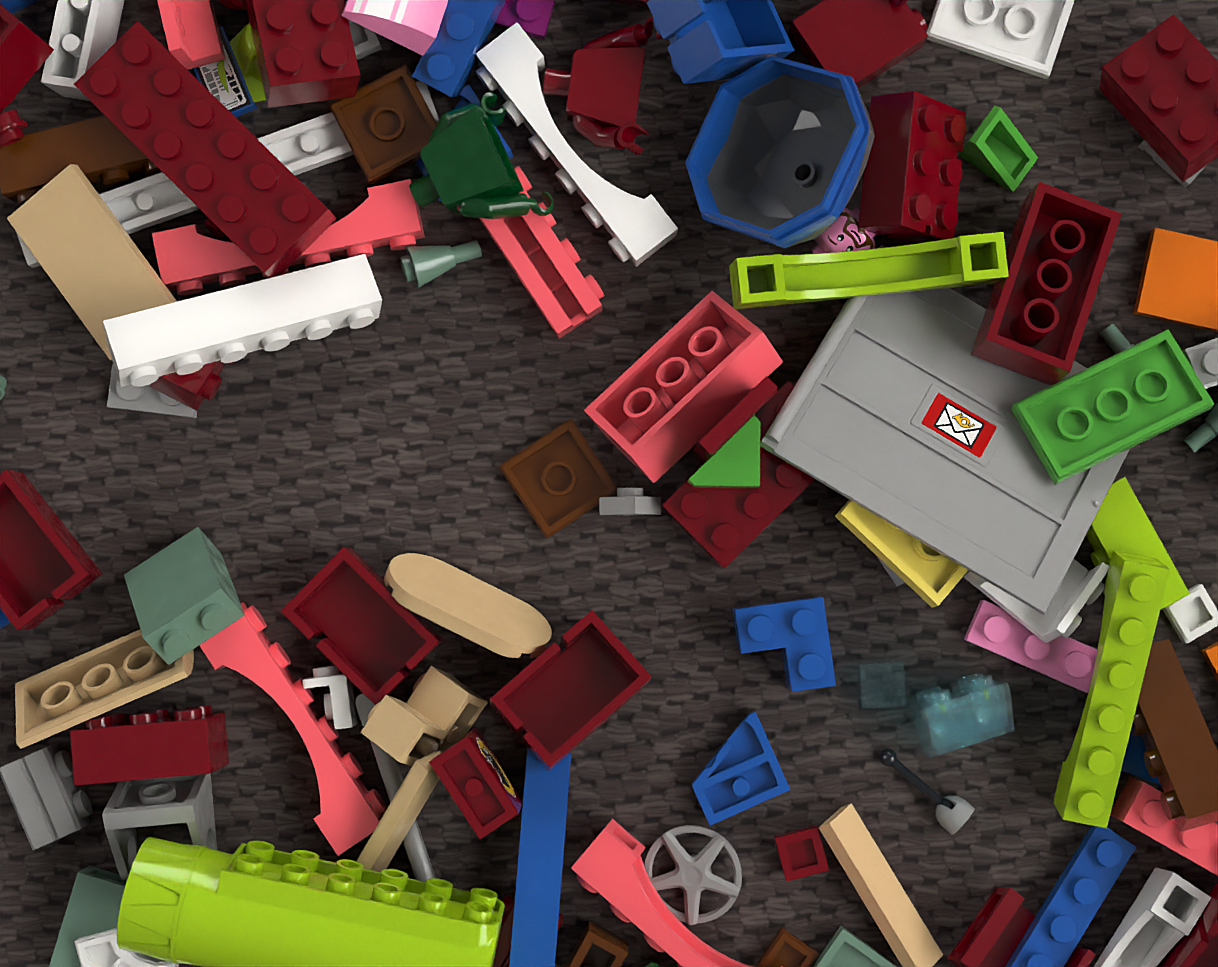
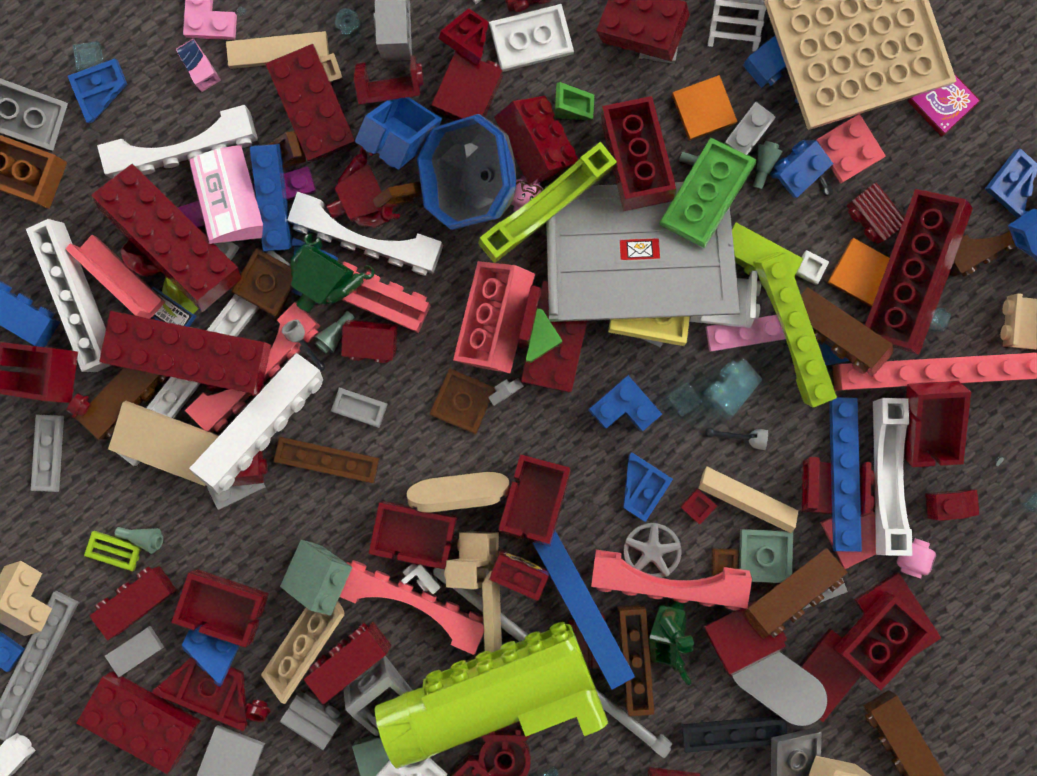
camera: 35 degrees left, 0 degrees up
(309, 436) = (326, 459): none -> reddish brown plate
(382, 222) = (295, 332): none -> light grey hinge
(404, 391) = (359, 407): none -> light grey tile
(481, 304) = (369, 340): none -> dark red brick
(660, 120) = (398, 194): none -> reddish brown tile

